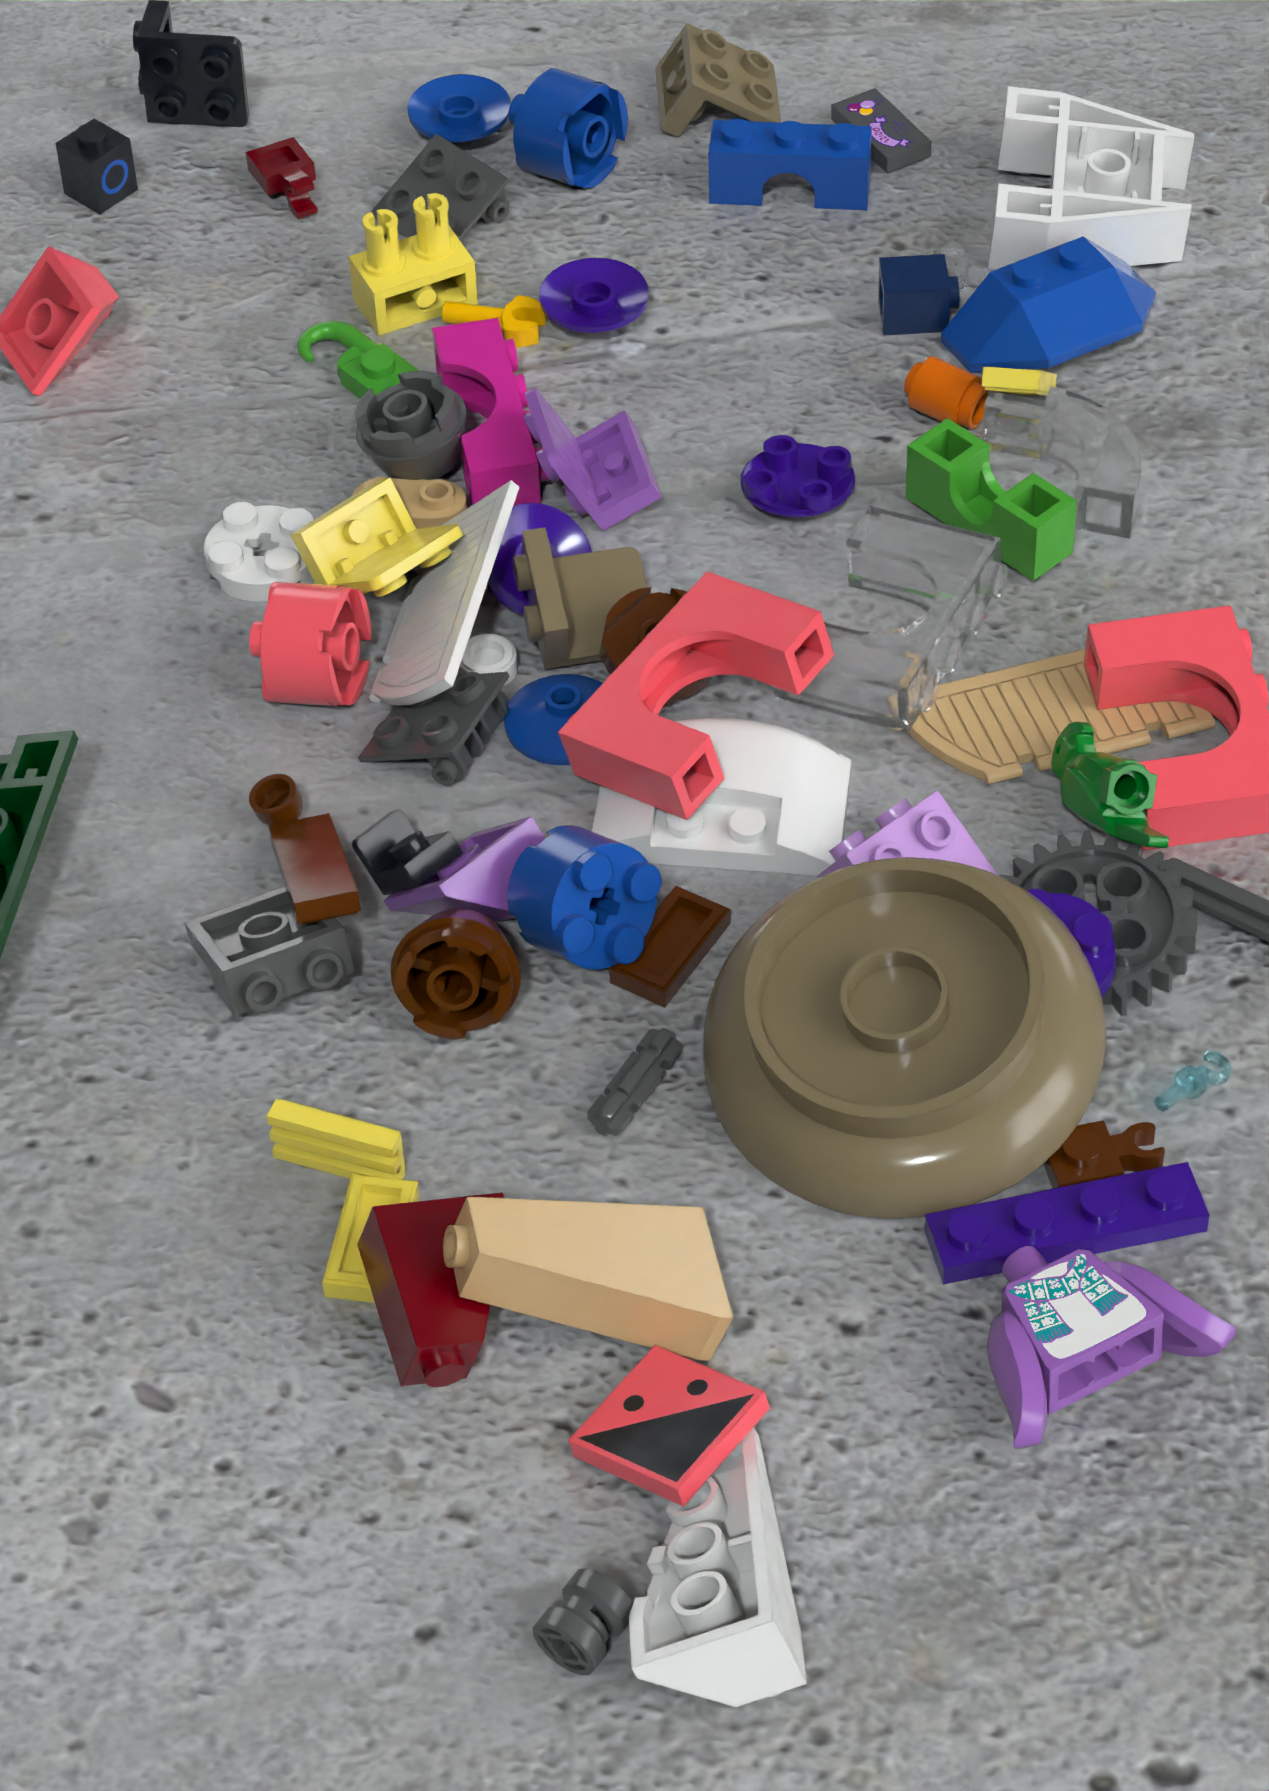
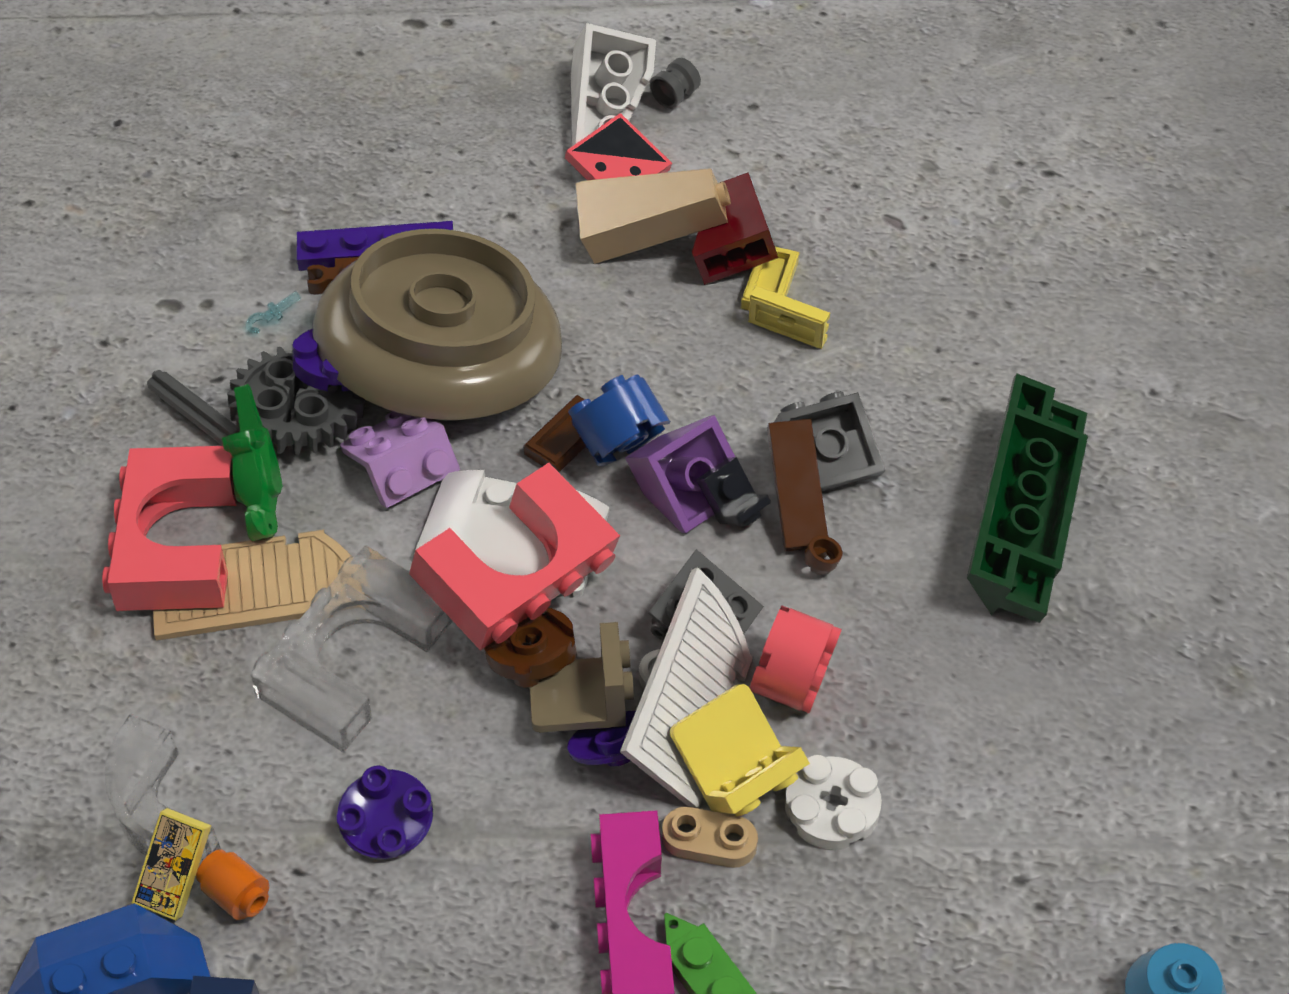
camera: 175 degrees left, 5 degrees up
(412, 427) = (702, 873): dark grey cone -> none
(455, 973) = (707, 391): reddish brown cone -> none
(542, 710) = (631, 614): blue dish -> none
(602, 468) = (553, 831): medium lavender bracket -> none
(634, 1082) = (605, 345): dark grey axle -> none
(954, 482) = (249, 753): bright green arch -> none
(1083, 1327) = (389, 176): medium lavender torso -> none

